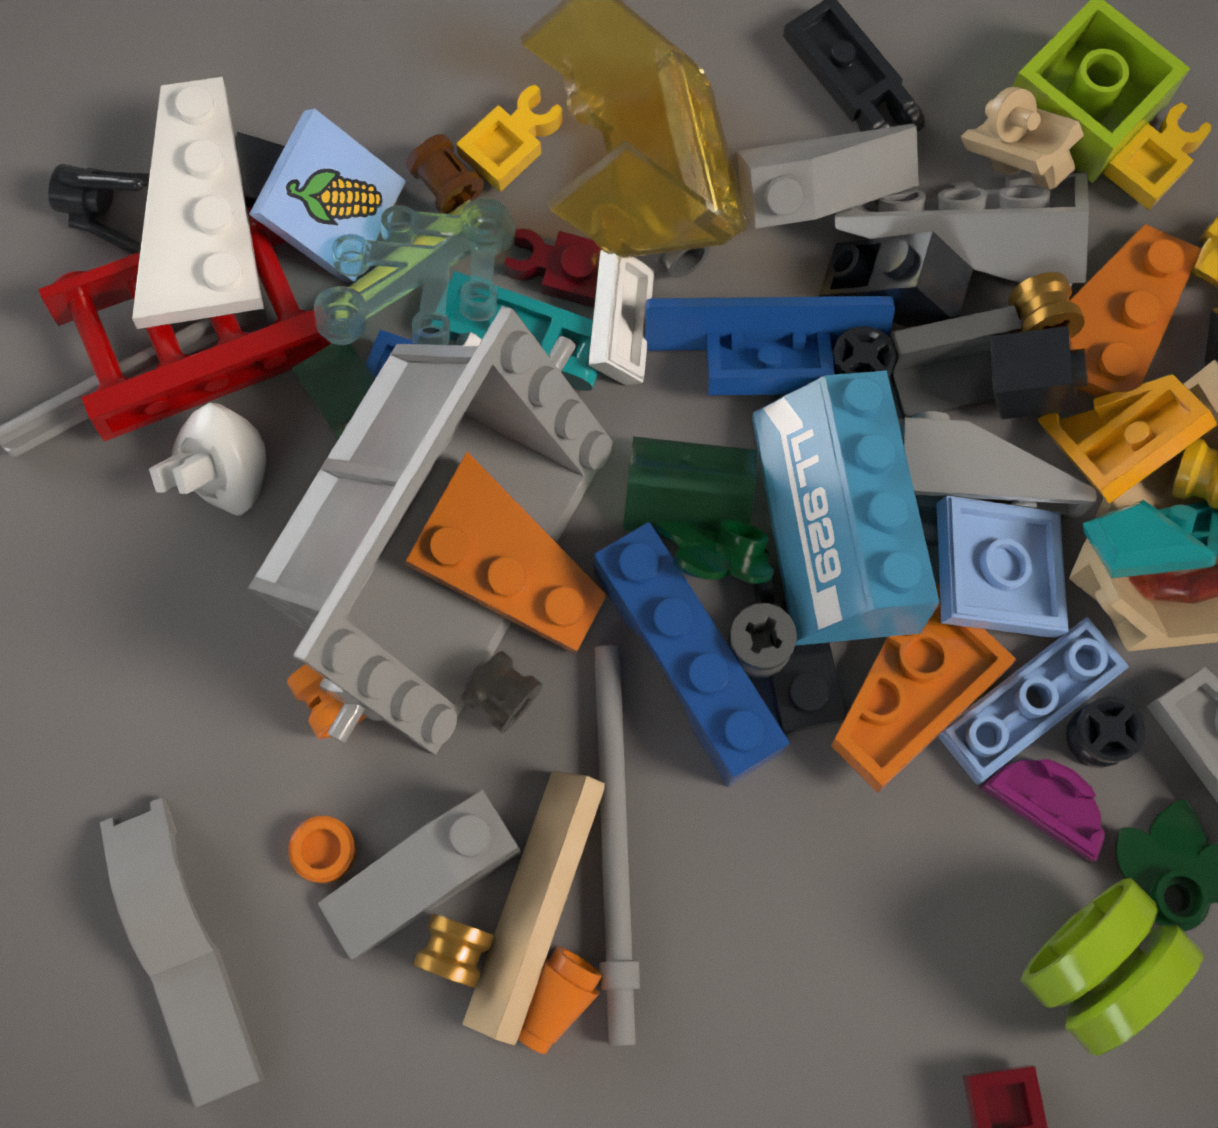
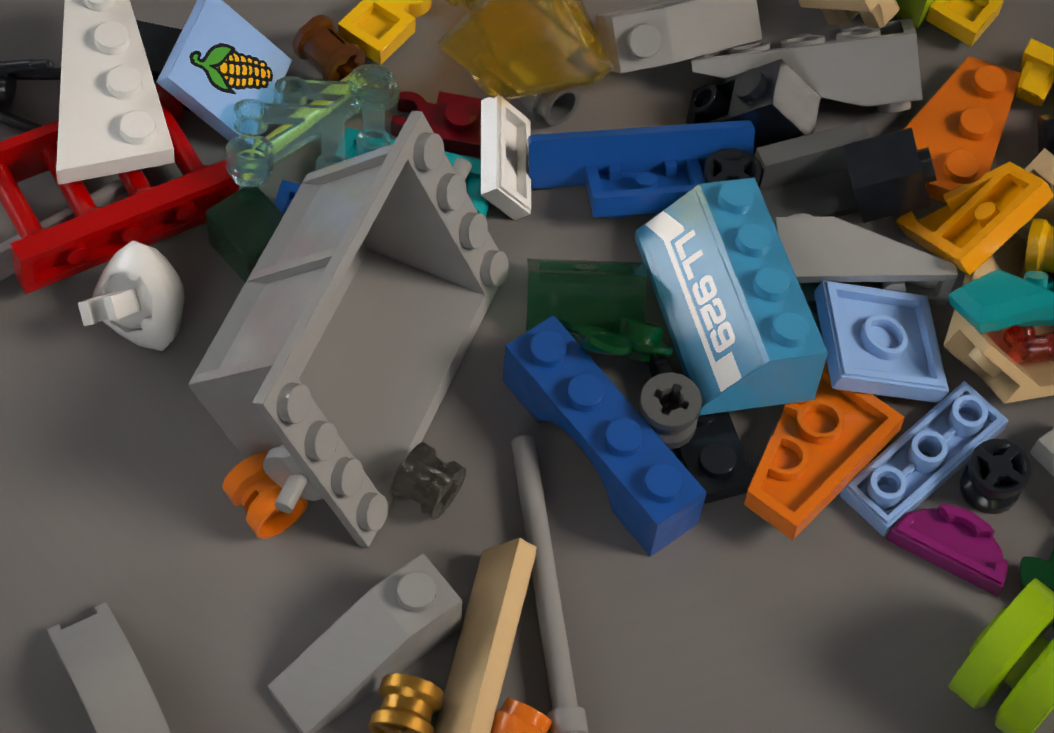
camera: 10 degrees left, 15 degrees down
(322, 849) = (268, 638): orange tile -> none
(504, 560) = (420, 367): orange wing -> none
(1045, 304) = (890, 112): pearl gold wheel -> none

